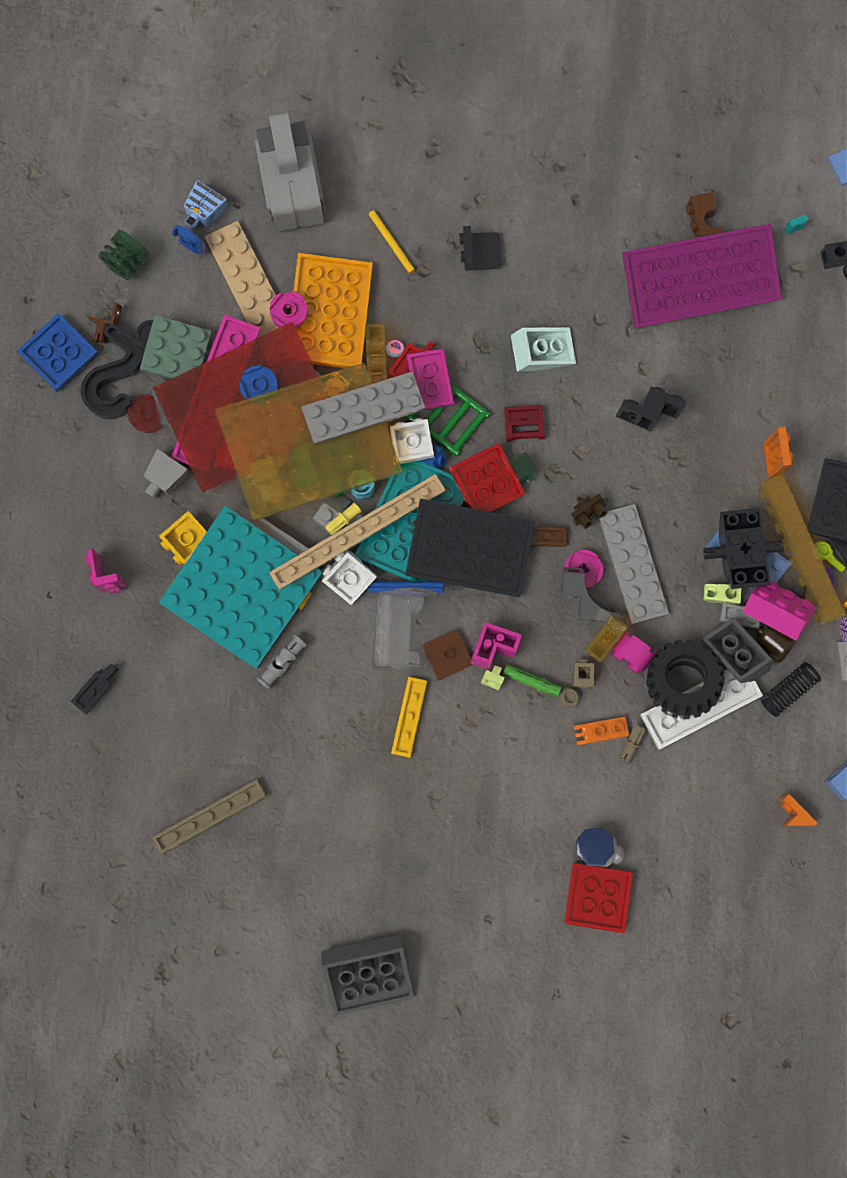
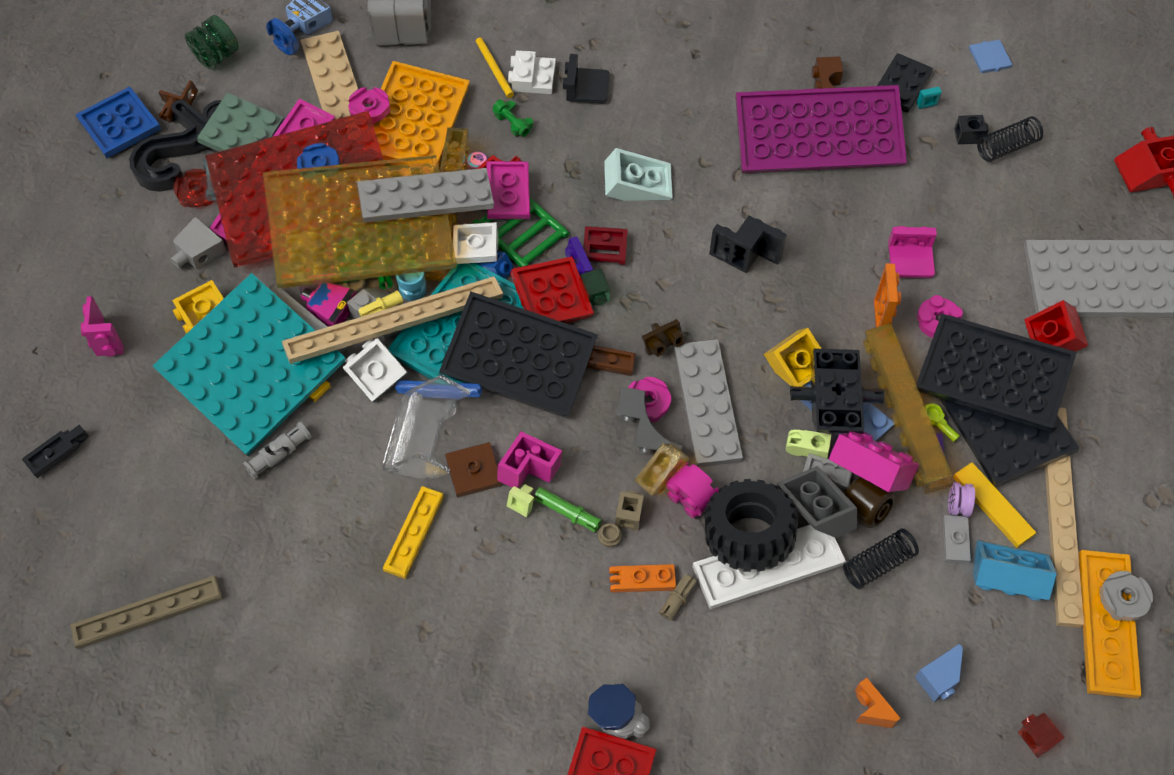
camera: 10 degrees right, 20 degrees down
(297, 520) = (328, 303): none -> dark pink torso
(427, 306) = (520, 126): none -> green piece
(428, 244) = (531, 73): none -> white plate
(499, 435) = (580, 258): none -> dark purple plate
(702, 514) = (793, 357): none -> yellow slope
(771, 205) = (910, 77): none -> black plate
(793, 394) = (912, 251): none -> dark pink bracket
(819, 443) = (935, 306): none -> dark pink plate

